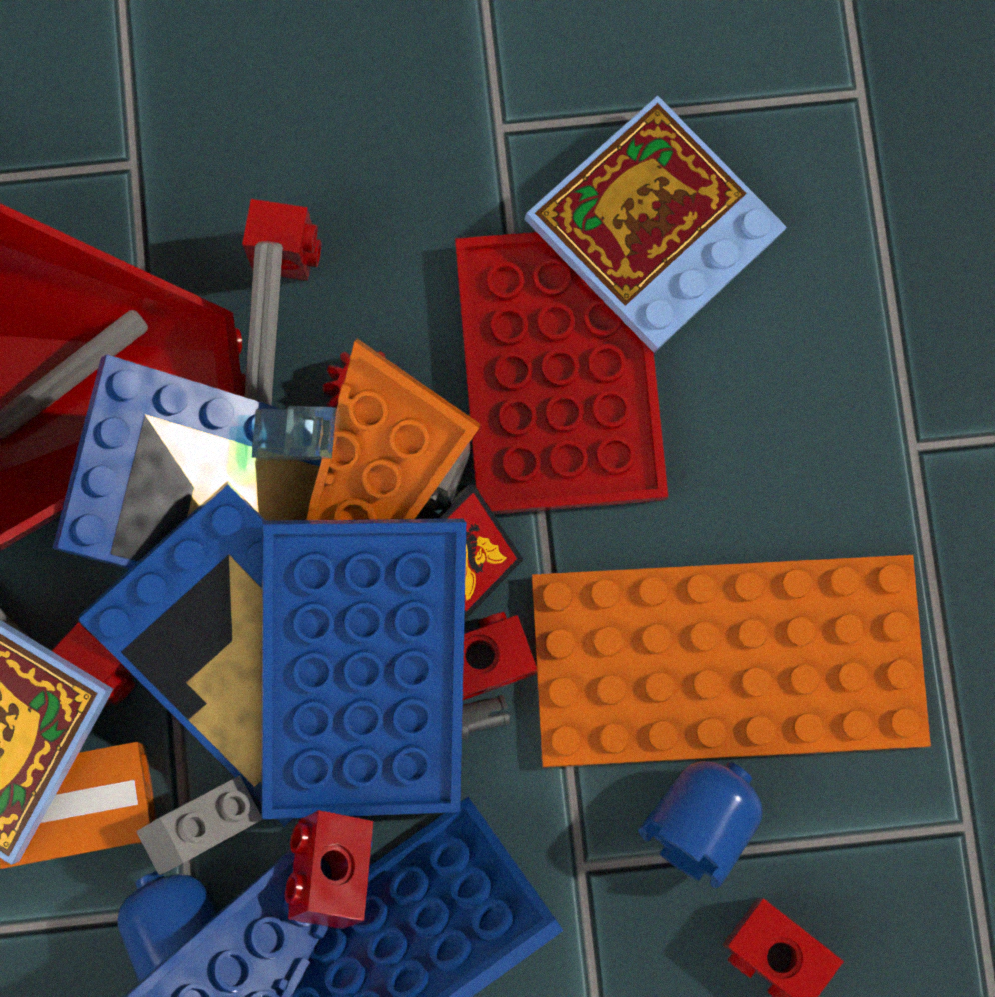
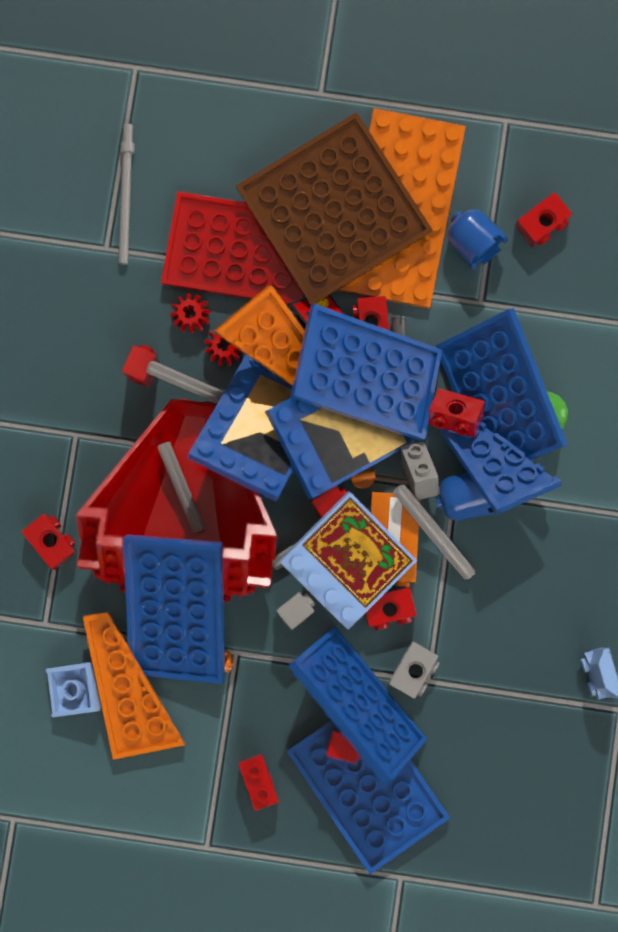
camera: 75 degrees left, 5 degrees up
(83, 886) = (434, 531): none -> light grey axle
(164, 724) = (363, 479): none -> orange plate
(294, 433) = (248, 375): clear light blue slope -> none
(397, 298) = (180, 315): none -> red gear
(655, 223) = (179, 183): plate -> none
(684, 526) = (334, 209): none -> reddish brown plate
(698, 115) = (127, 149): none -> light grey bar

